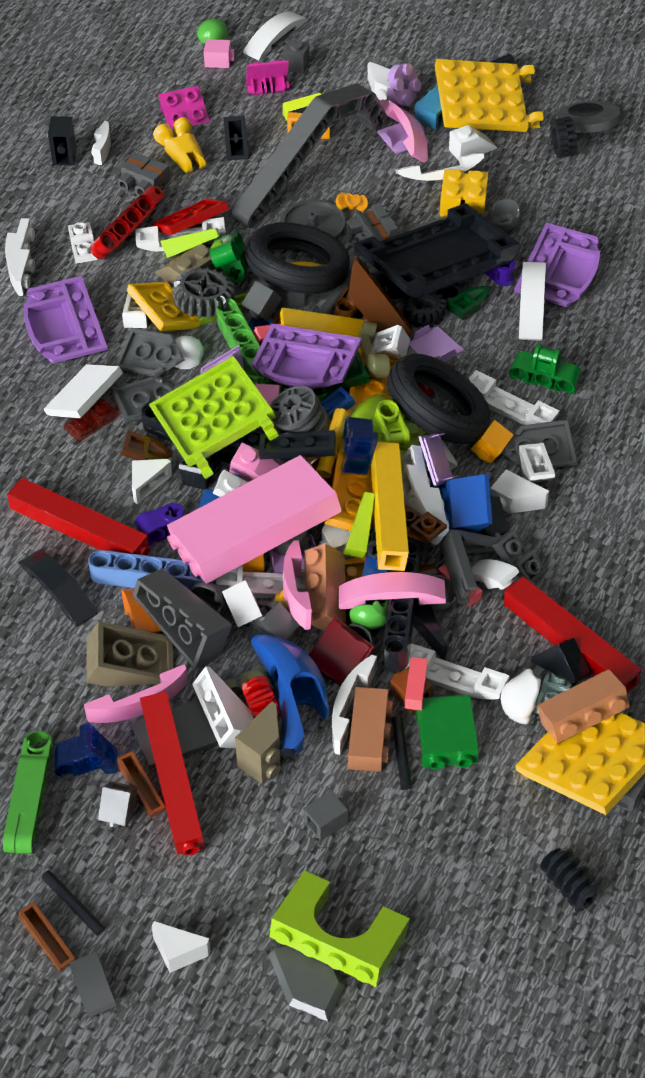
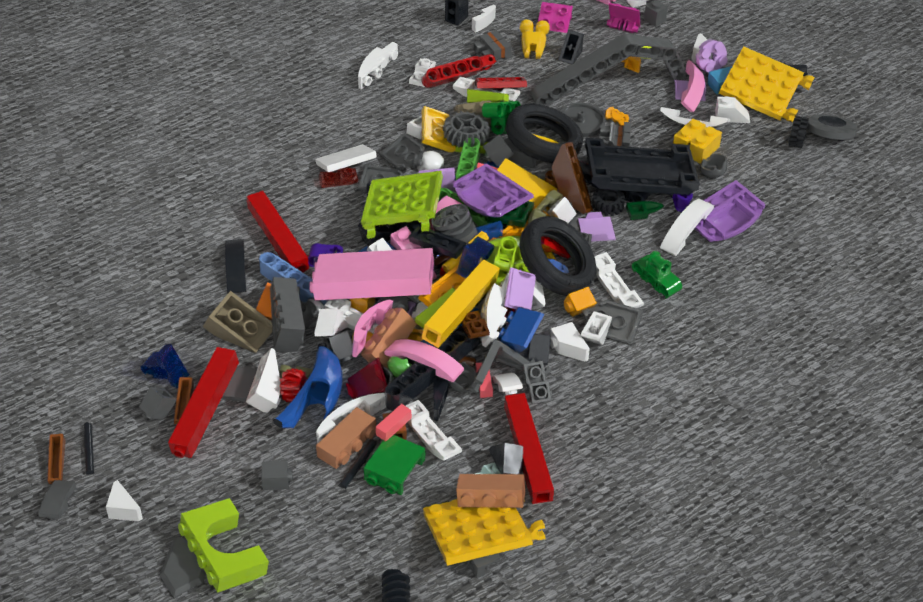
camera: 30 degrees right, 5 degrees down
(27, 793) = (113, 373): bright green piece -> none
(63, 320) = (368, 112): medium lavender slope -> none
(105, 710) = (249, 352): bright pink slope -> none
(141, 447) = (352, 205): reddish brown plate -> none
(148, 476) = (340, 225): white slope -> none
(259, 746) = (266, 407): dark tan slope -> none
(520, 697) = (457, 463): white hair -> none

